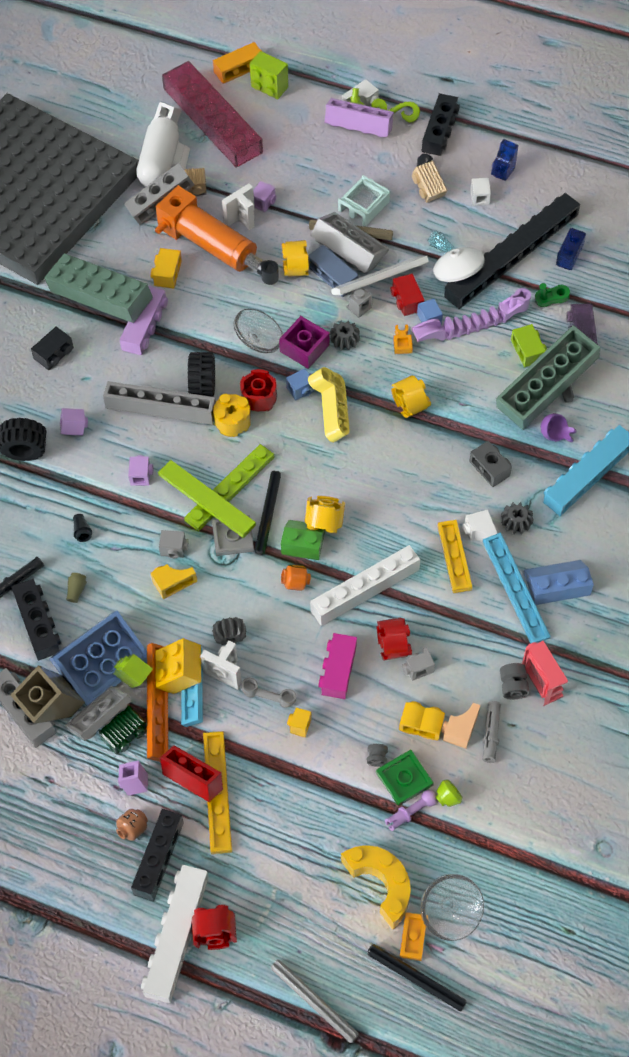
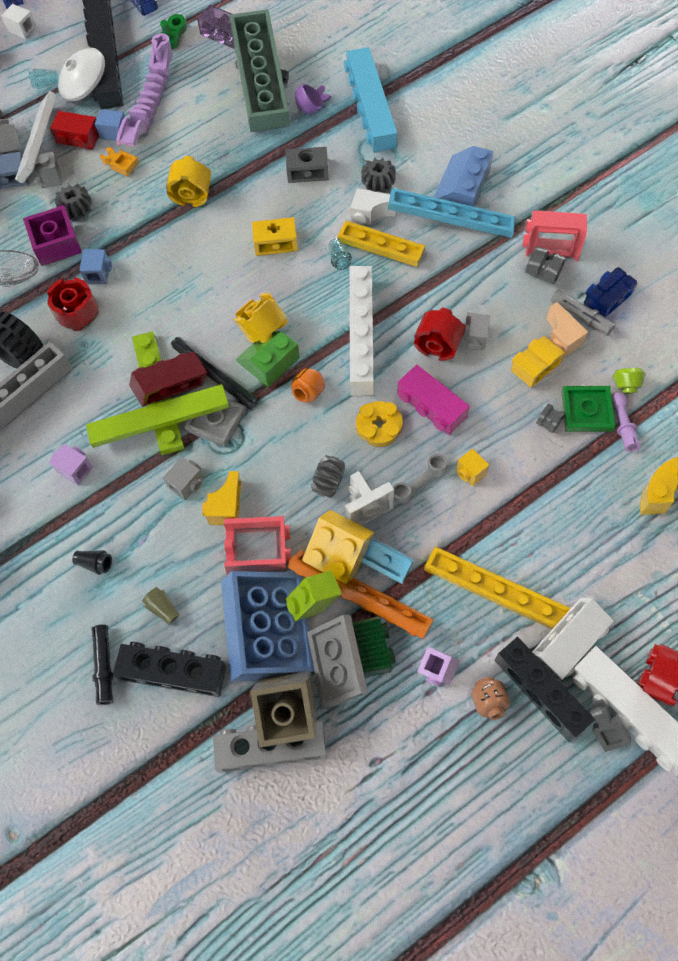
camera: 55 degrees left, 5 degrees up
(152, 618) = (256, 544): none -> window
(152, 910) = (608, 730): none -> dark grey plate
(191, 773) = (472, 600): red brick -> none
(205, 854) = (573, 637): none -> white brick
(232, 414) = (79, 341): yellow brick -> none
(237, 486) = (167, 378): none -> dark red brick
(296, 652) = (379, 411): none -> yellow plate
(333, 401) = (119, 239): light yellow beam -> none
(408, 481) = (274, 236): none -> yellow brick
(422, 534) = (339, 255): none -> clear light blue cone
(523, 741) = (610, 291): none -> clear blue brick
(527, 344) = (209, 73): lime brick -> none

